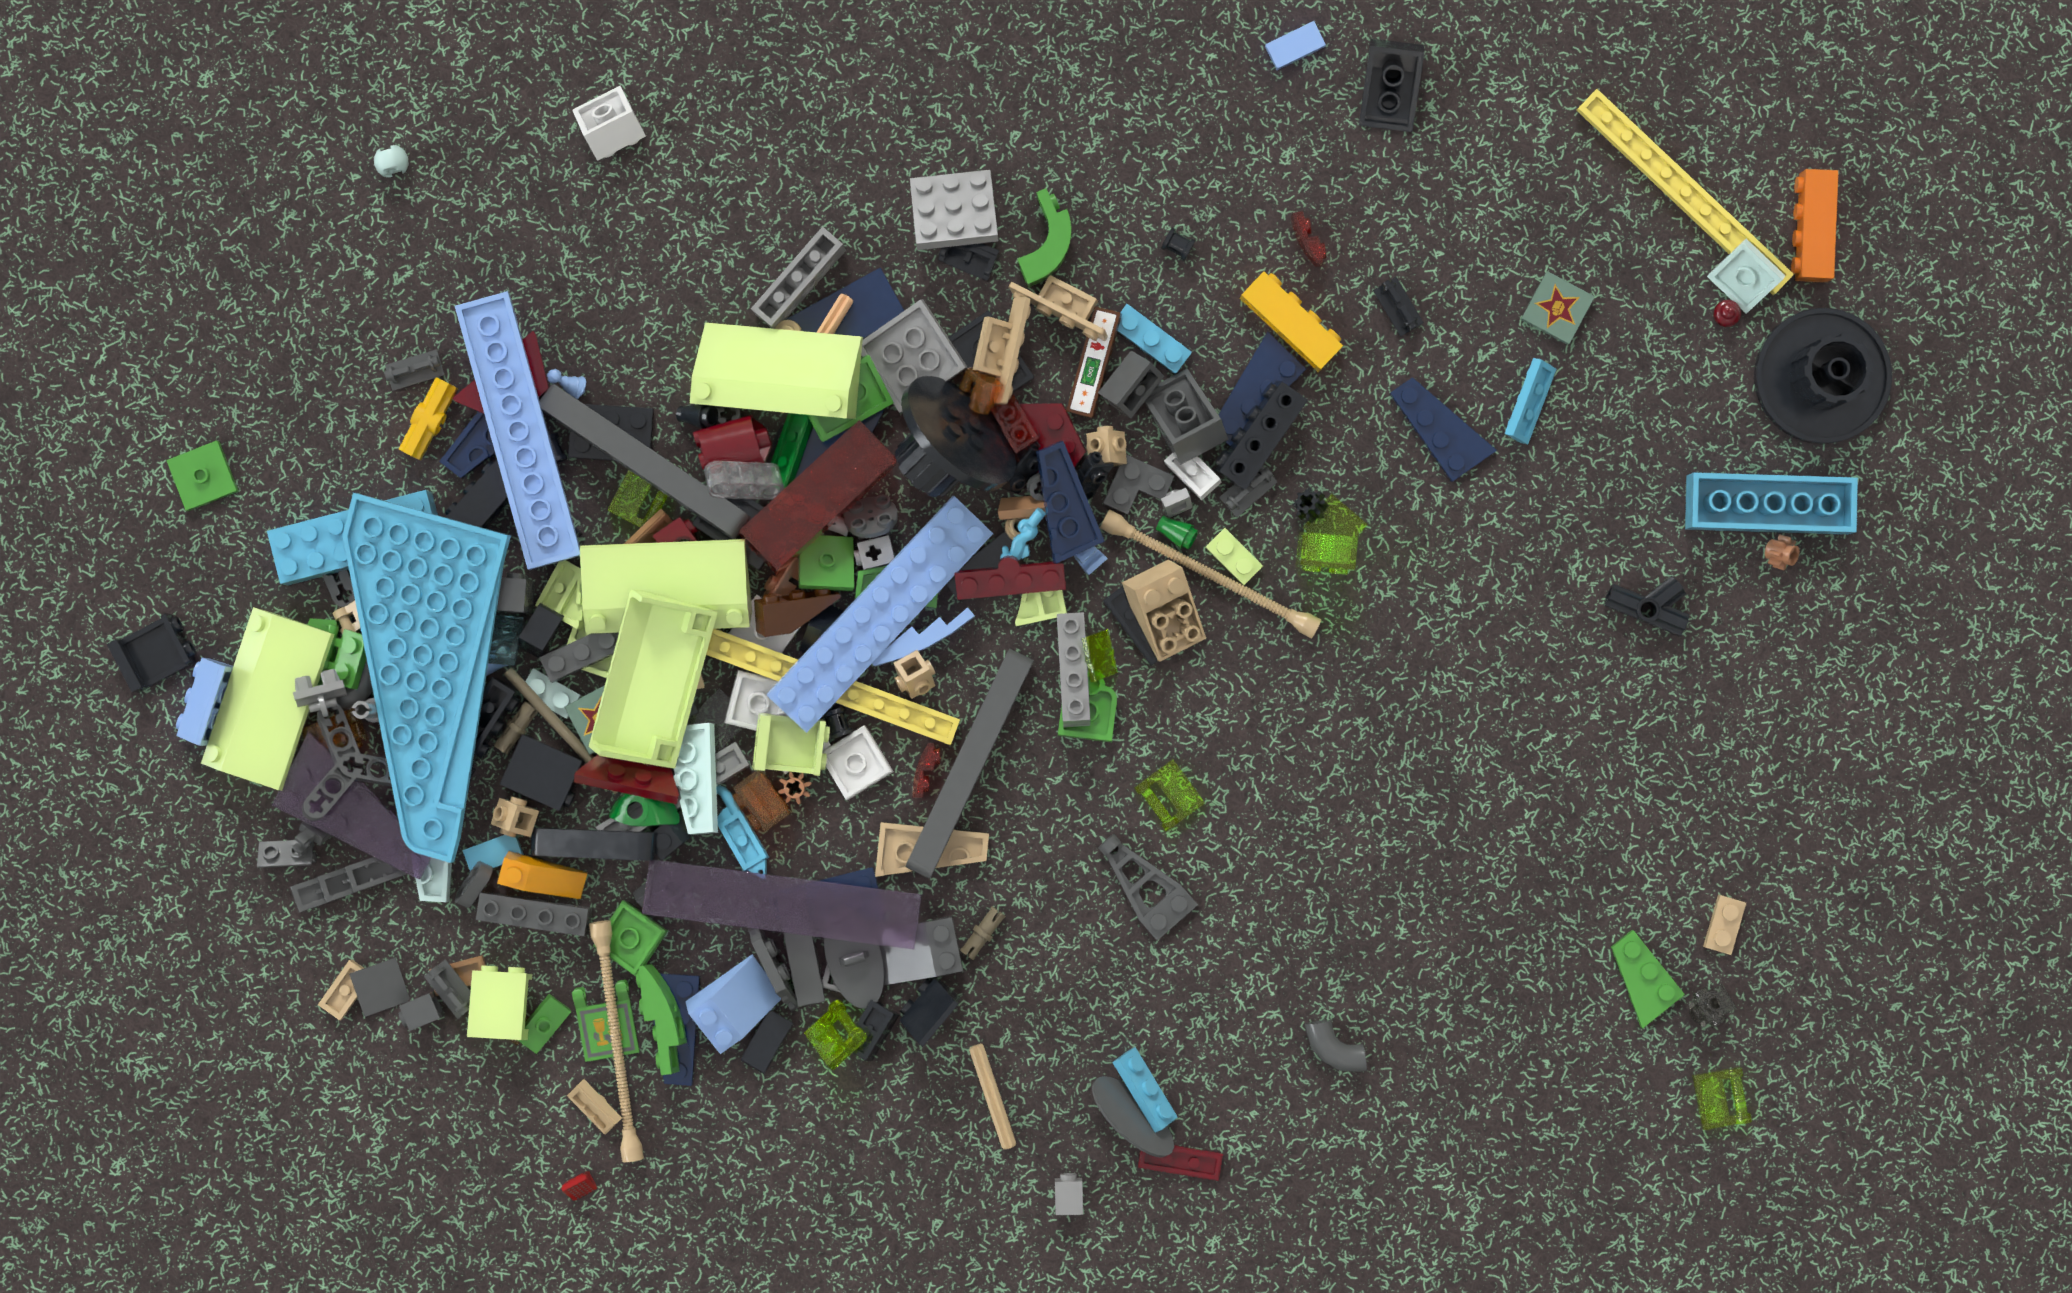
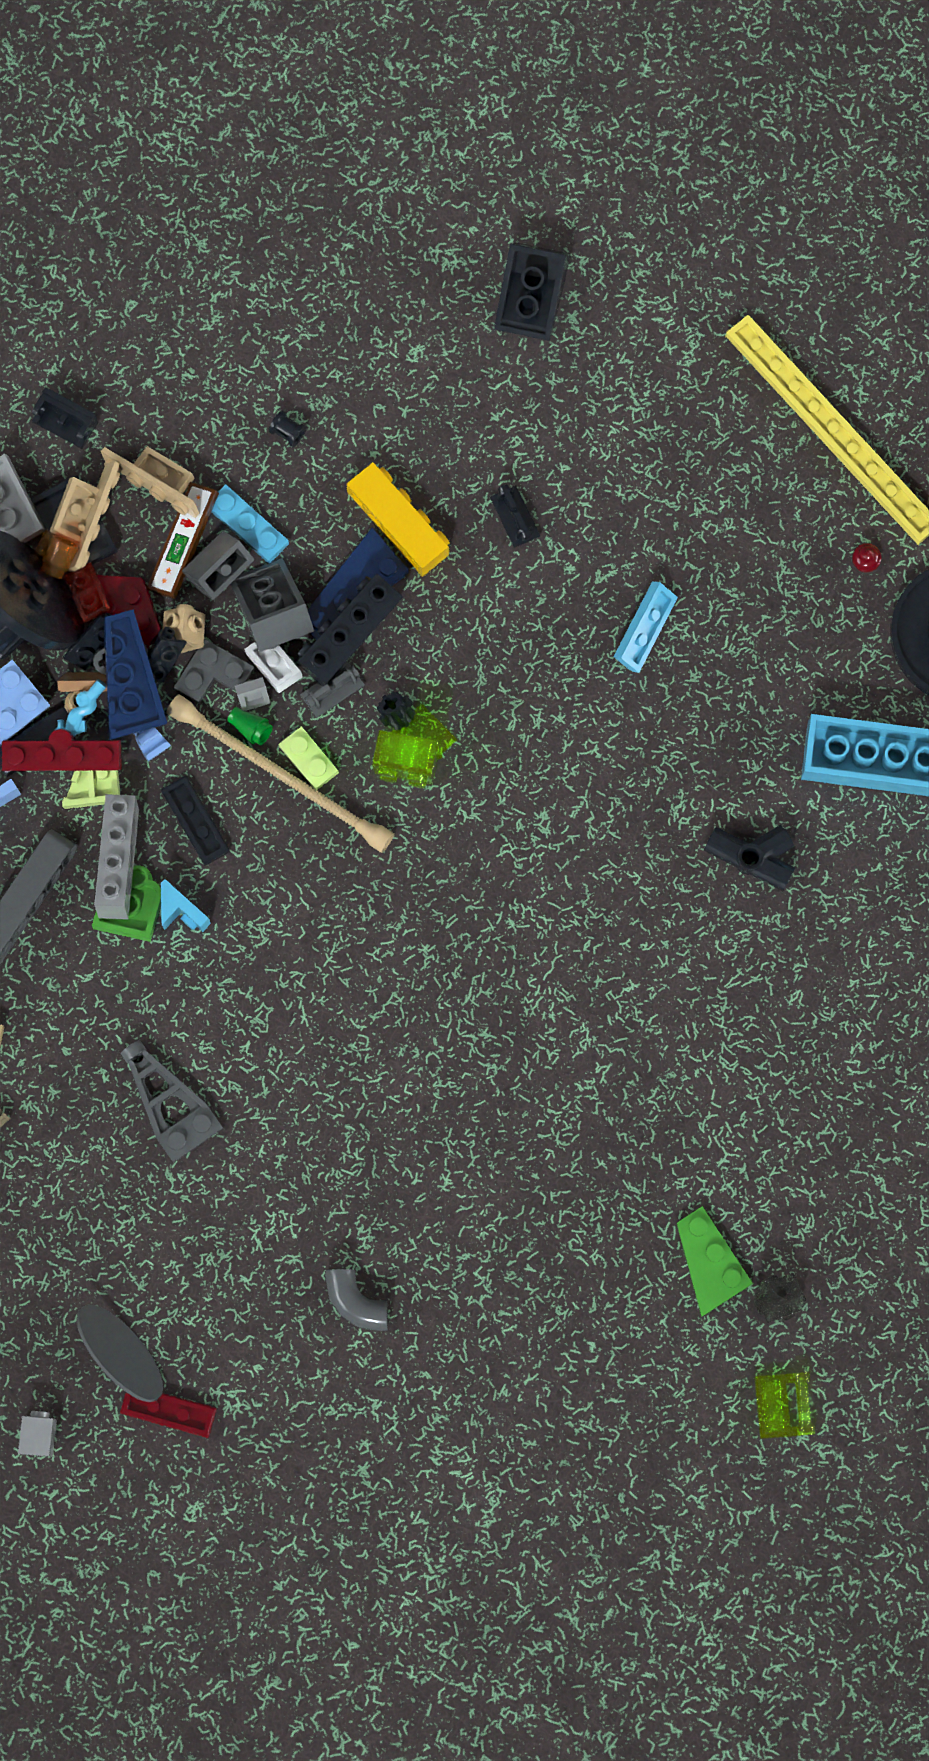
camera: 10 degrees right, 10 degrees down
(953, 209) = (53, 368): light grey plate -> none
(1049, 257) = (157, 418): bright green arch -> none
(1099, 655) = (147, 844): clear neon green piece -> none
(1129, 705) = (175, 903): none -> medium azure slope
(1145, 1089) = (138, 1325): medium azure plate -> none
(1164, 609) = (225, 805): tan slope -> none
(1176, 788) = (216, 1001): clear neon green plate -> none
(1295, 45) = (436, 243): light blue tile -> none
(1311, 246) = (426, 442): clear red slope -> none
(1443, 432) = (551, 654): dark blue wing -> none
(1557, 308) = (685, 535): sand green tile -> none
(1724, 924) = (805, 1211): tan plate -> none
(1746, 276) = (888, 518): light aqua plate -> none
(1782, 552) = (902, 812): nougat gear -> none

